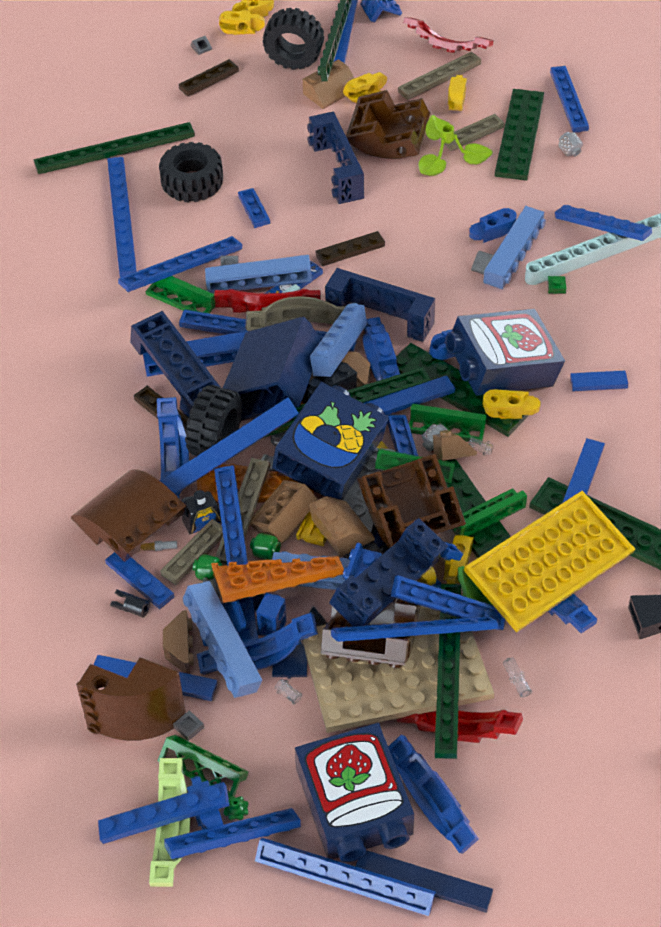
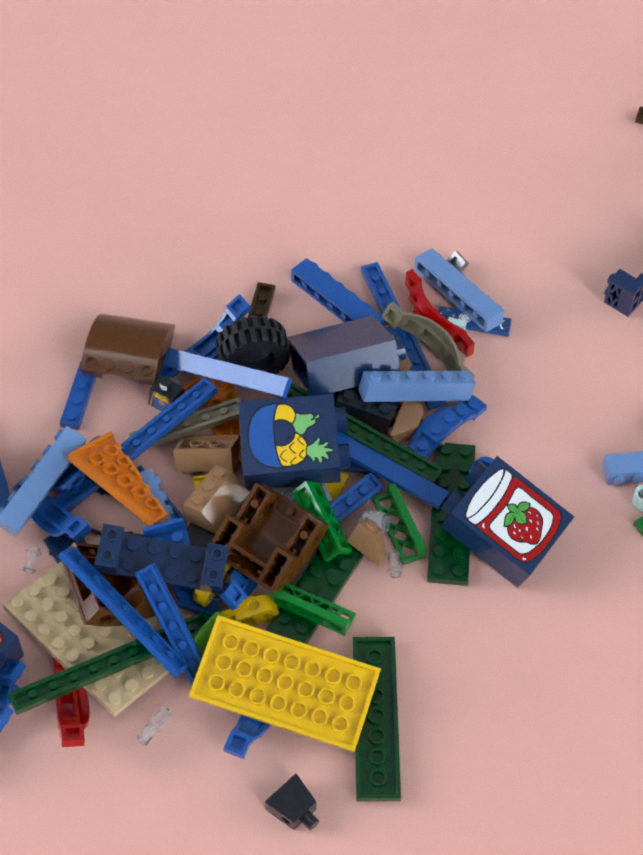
camera: 55 degrees right, 5 degrees up
(113, 148) = (526, 110): dark green plate -> none
(121, 216) = (452, 161): blue plate -> none
(132, 604) = (48, 404): black hinge -> none
(159, 545) = (120, 389): light grey piece -> none
(173, 357) = (301, 281): dark blue plate -> none
(178, 642) = (25, 455): medium nougat slope -> none
(179, 264) = (423, 229): blue tile -> none
(184, 292) = (400, 249): green fence -> none
(193, 185) = (540, 159): black tyre -> none
(200, 544) = (122, 415): dark tan plate -> none
(203, 566) = (119, 430): green head -> none
(253, 207) = (542, 243): blue tile -> none
(264, 546) = (163, 461): green head -> none
(271, 614) = (91, 503): blue brick -> none
(350, 248) = (554, 340): dark brown plate -> none
(383, 297) = (504, 433): dark blue plate -> none
(481, 261) = (622, 446): flat silver slope -> none
(510, 404) = (459, 573): yellow piece -> none
(585, 468) = (419, 663): blue tile -> none
(599, 380) = (552, 622): blue tile -> none

